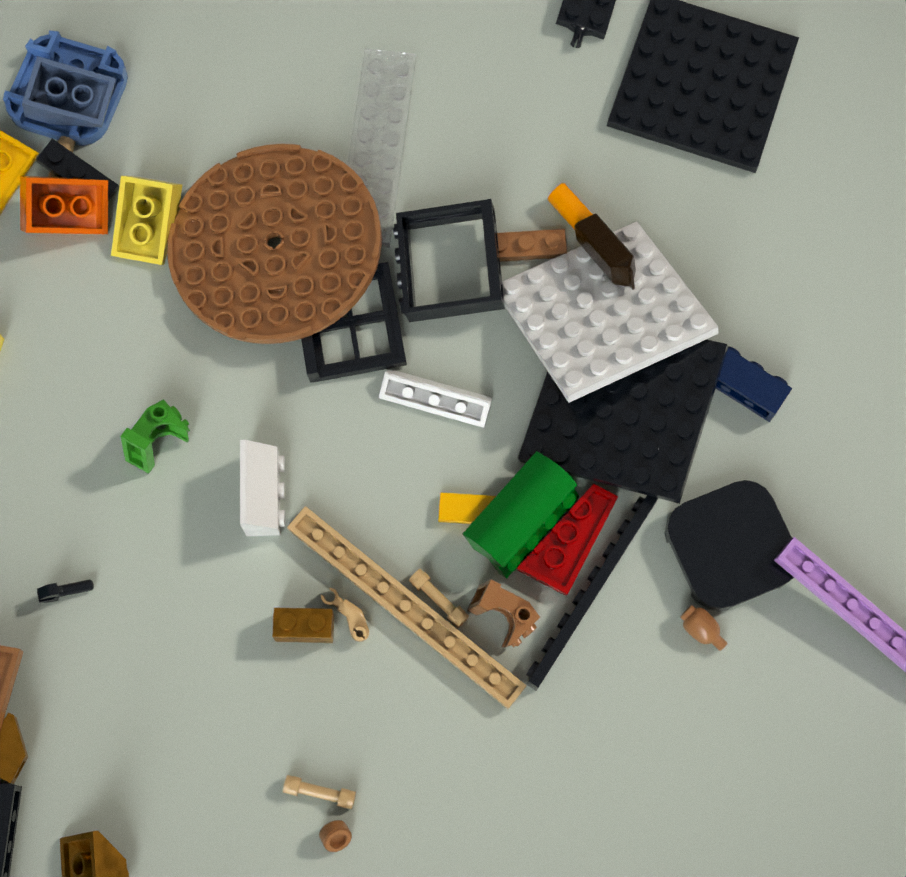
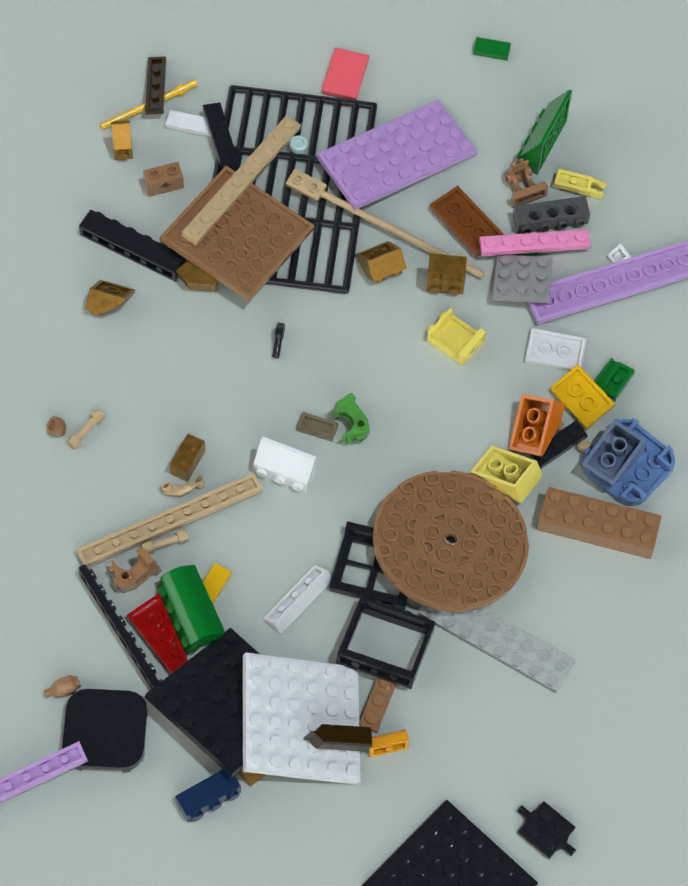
camera: 115 degrees right, 10 degrees down
(169, 88) = (599, 522): none -> medium nougat brick
(177, 481) = (317, 426): none -> dark tan tile

